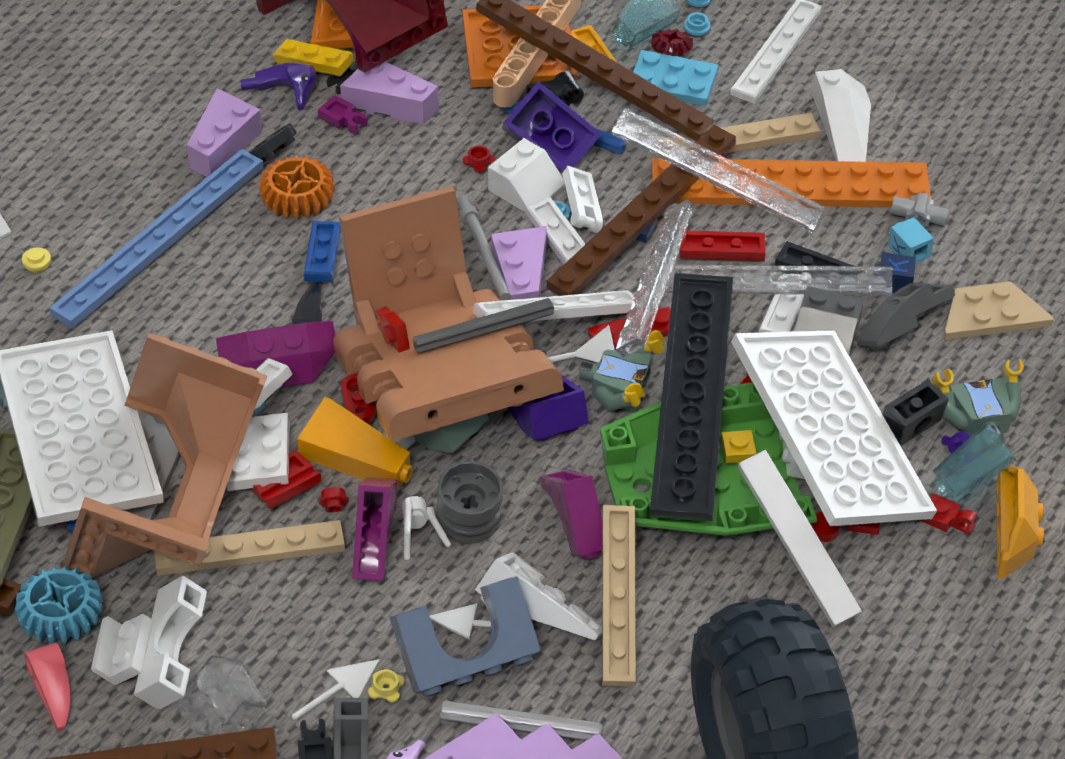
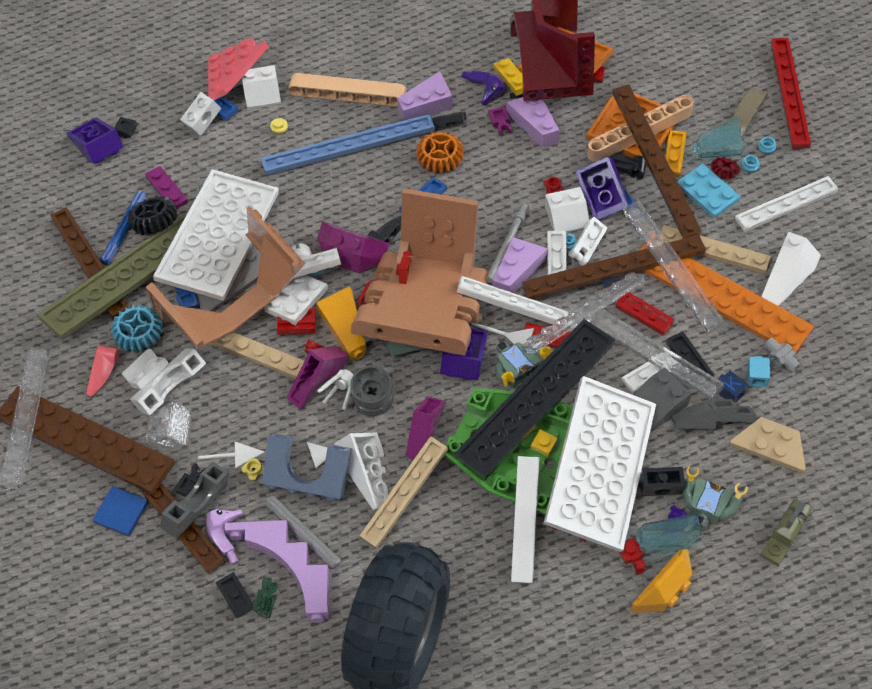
camera: 40 degrees right, 10 degrees up
(95, 171) = (346, 89): none -> light nougat beam
(483, 325) = (453, 292): dark grey axle -> none

